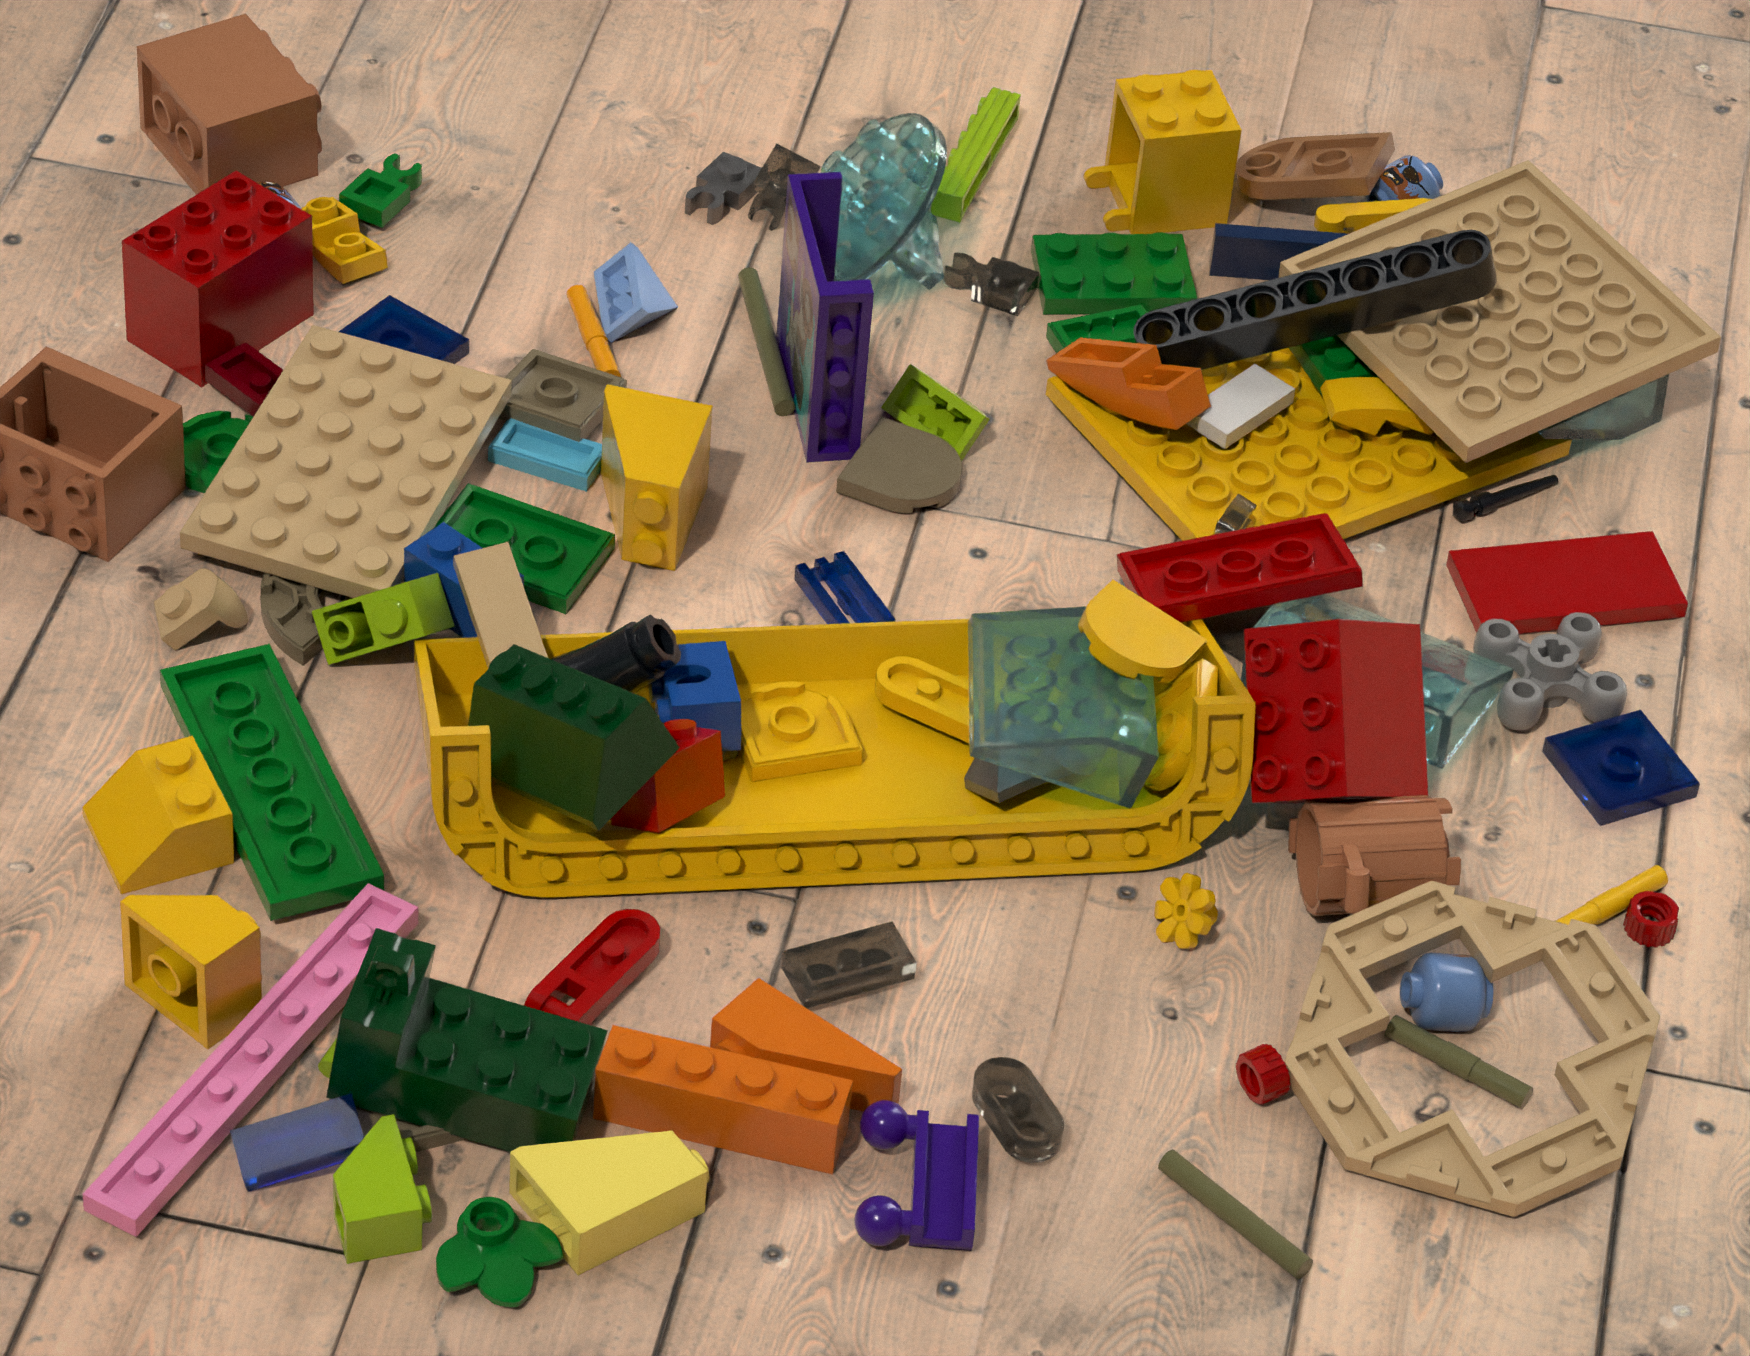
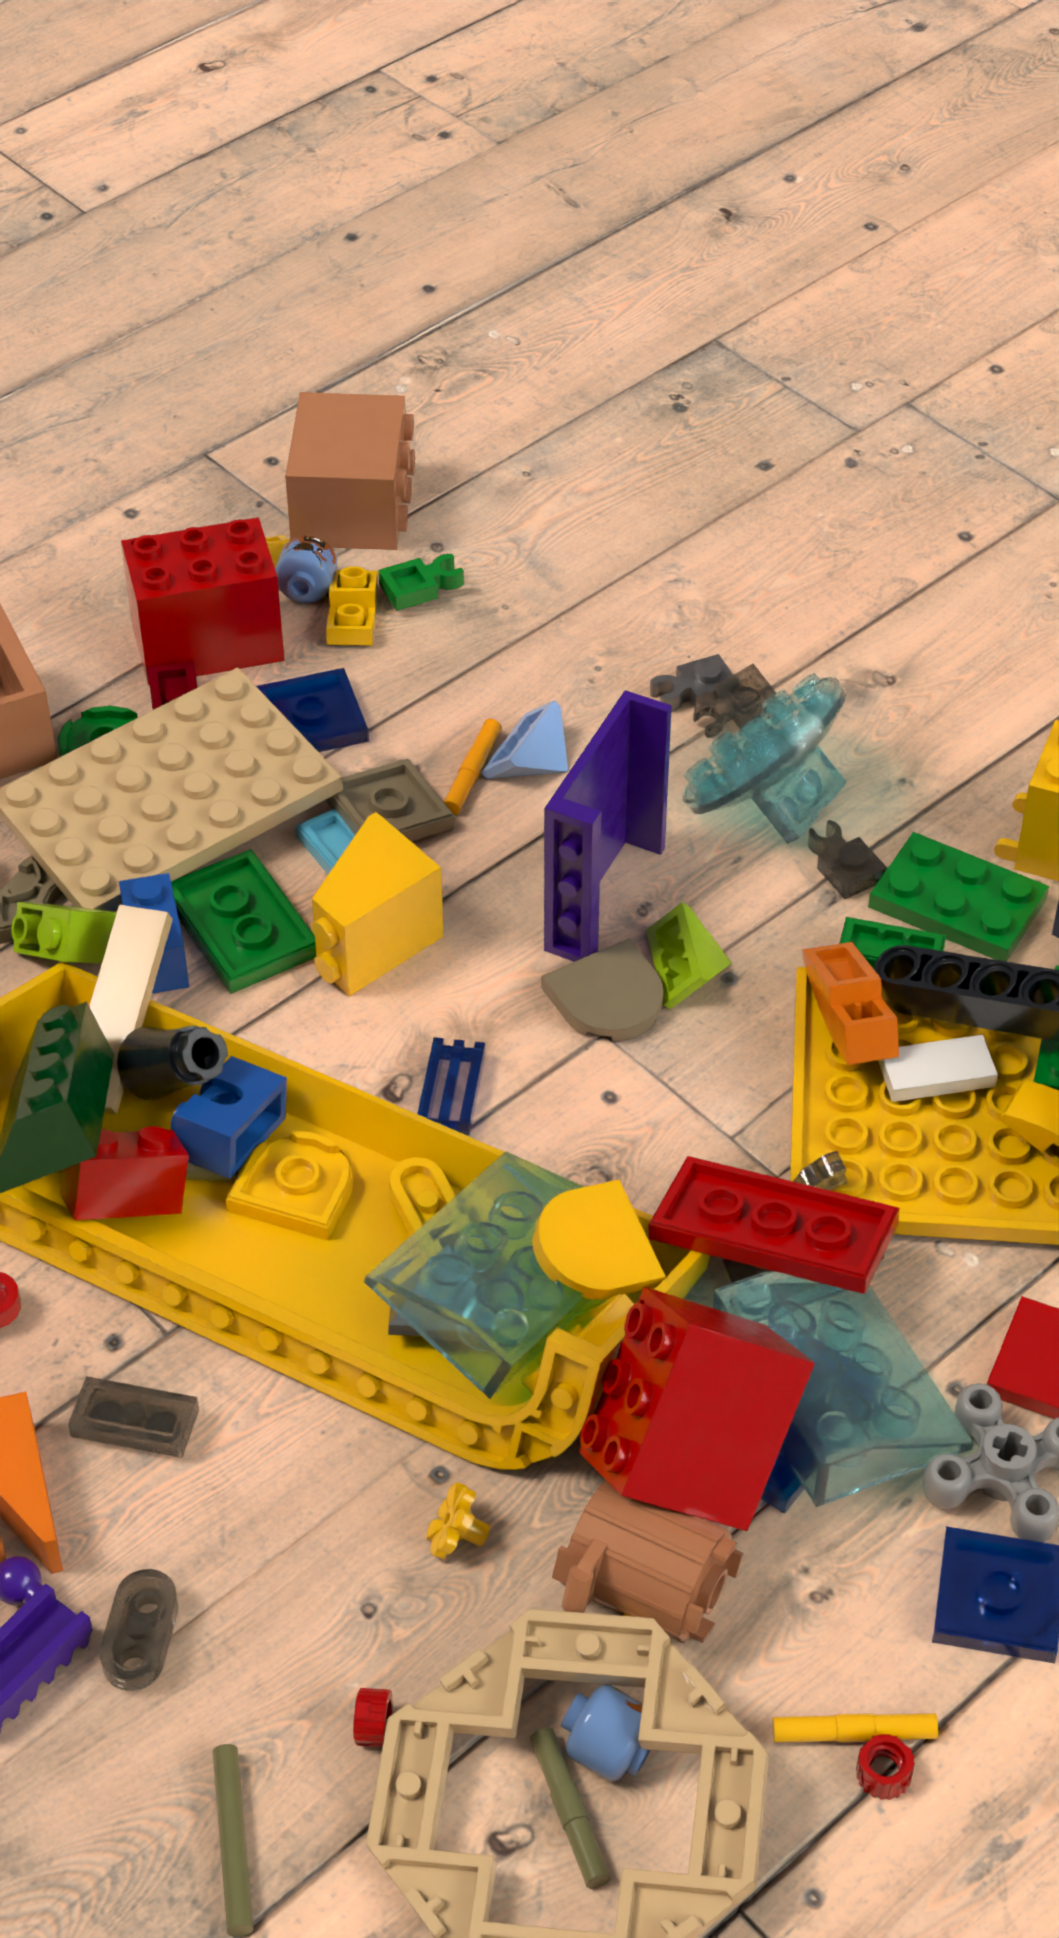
camera: 40 degrees right, 5 degrees up
(975, 153) = (933, 740): lime piece -> none

